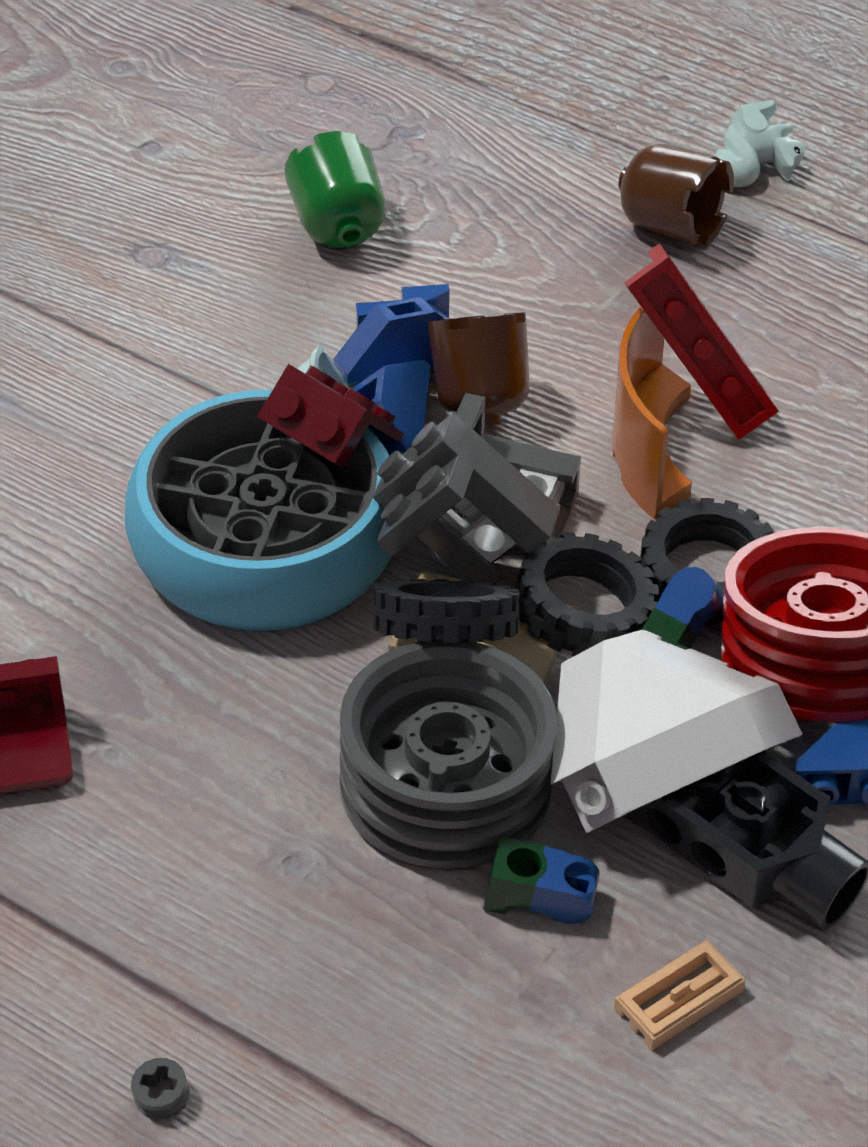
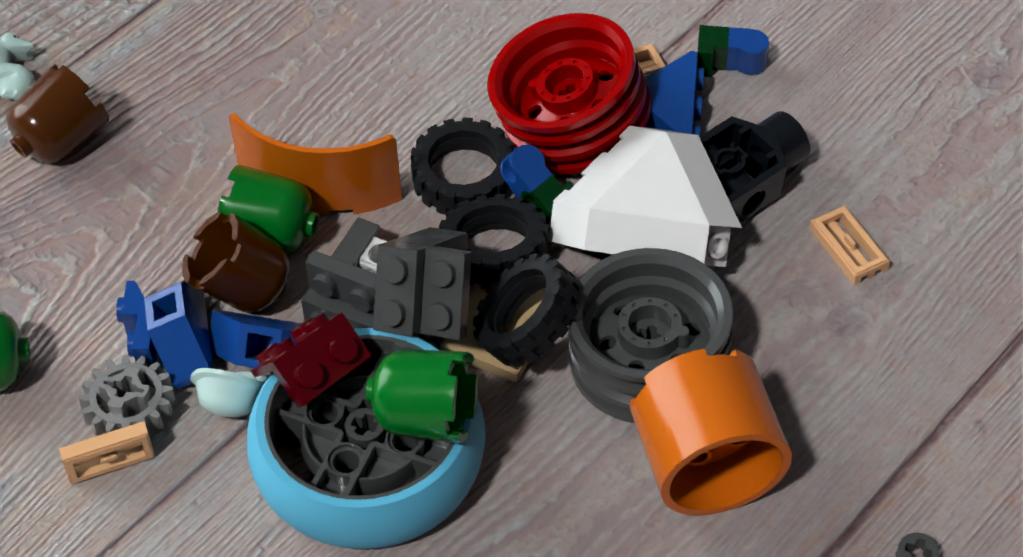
camera: 80 degrees left, 5 degrees up
(233, 320) = (107, 452): none -> light nougat tile
(260, 501) = (424, 394): none -> green cylinder
(282, 806) = (710, 432): none -> orange brick
(304, 320) = (127, 396): none -> light grey gear
(541, 881) = (757, 307): leg -> none
(572, 375) = (272, 205): none -> green cylinder
(701, 344) = (273, 109): red fence -> none

